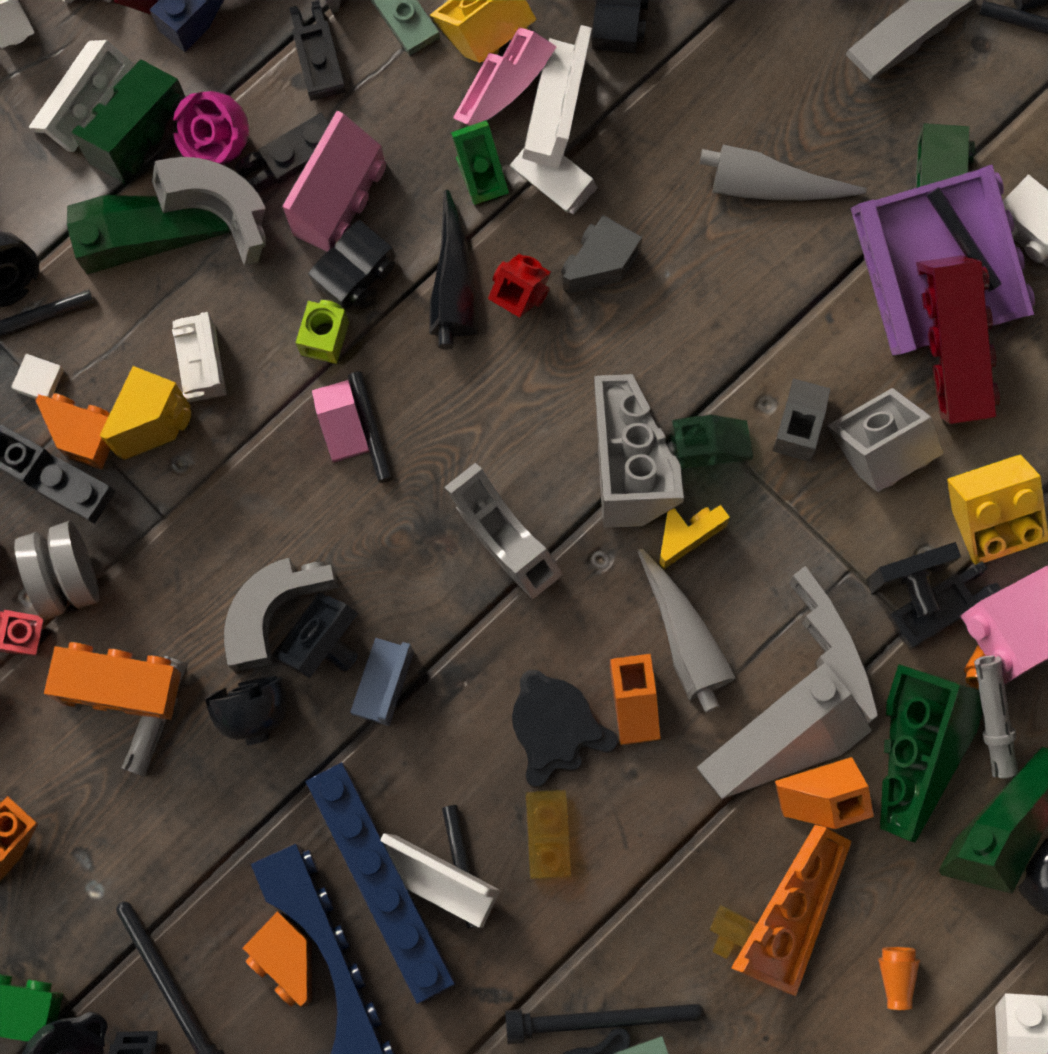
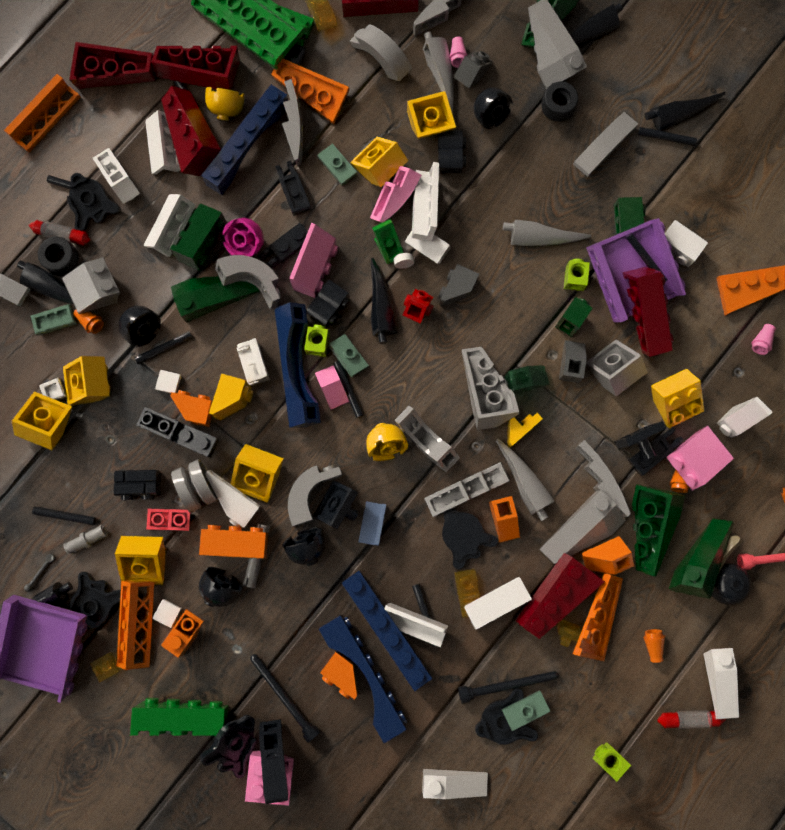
camera: 15 degrees left, 5 degrees up
(73, 767) = (217, 588): none -> black cylinder
(126, 611) = (234, 502): none -> white slope
(175, 561) = (256, 472): none -> yellow slope
(275, 440) = (291, 328): none -> dark blue arch
(378, 364) = (348, 355): none -> sand green plate
(426, 530) = (386, 441): none -> yellow cylinder
(505, 201) = (403, 260): none -> white tile
(570, 636) = (467, 489): none -> light grey slope
(600, 857) = (497, 603): none -> white panel
(720, 855) = (558, 595): none -> dark red wedge
(812, 333) = (574, 316): none -> dark green brick
(829, 274) = (576, 283): none -> lime brick
(998, 729) = (692, 515): light grey pin -> none

